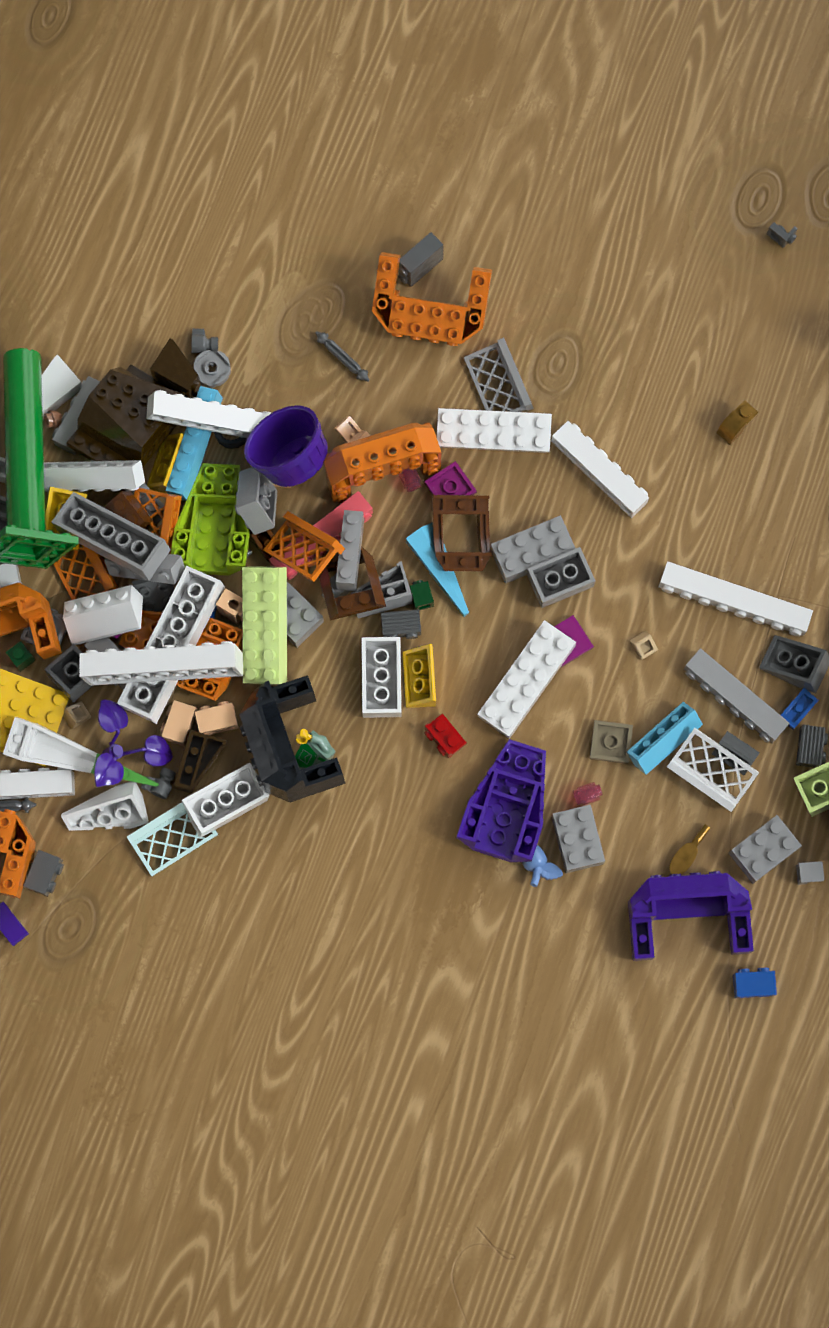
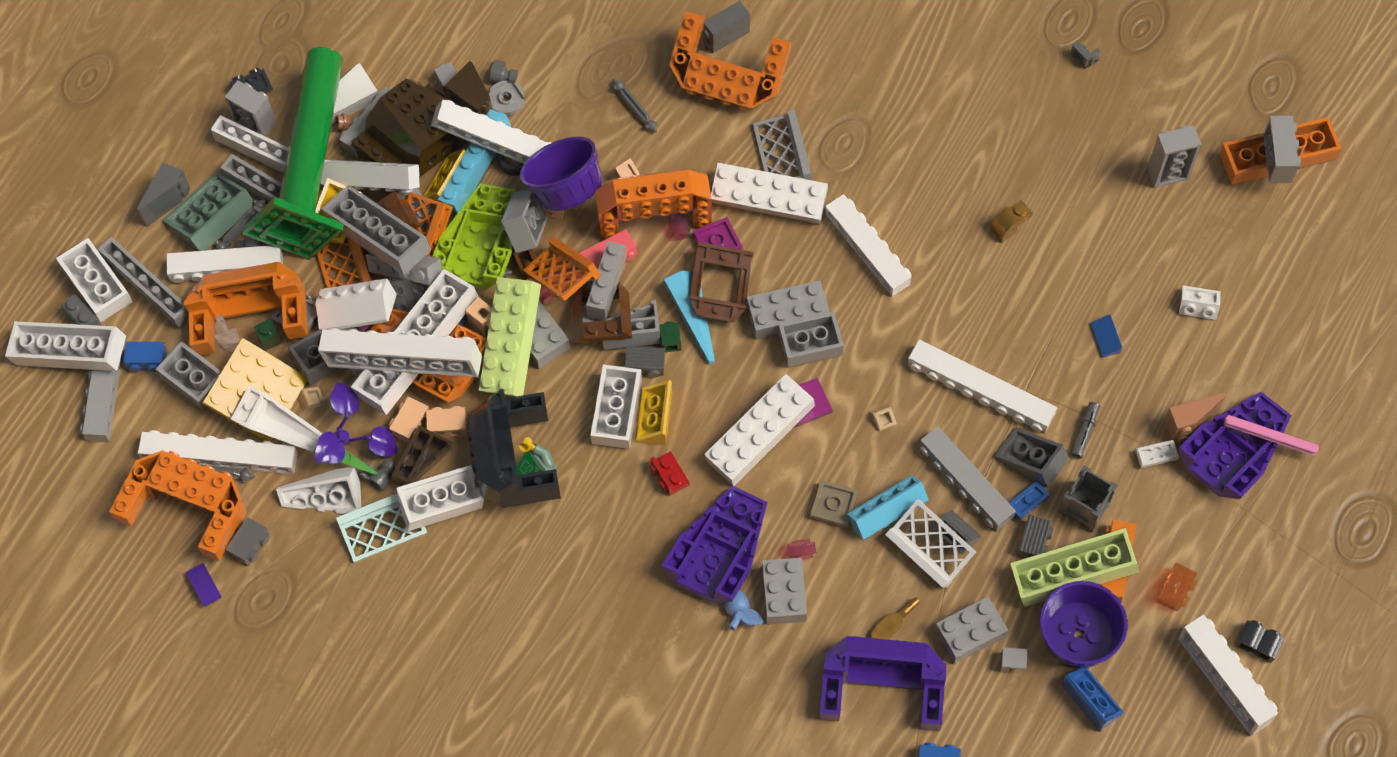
camera: 10 degrees right, 10 degrees down
(147, 354) = (444, 74): none -> light grey brick

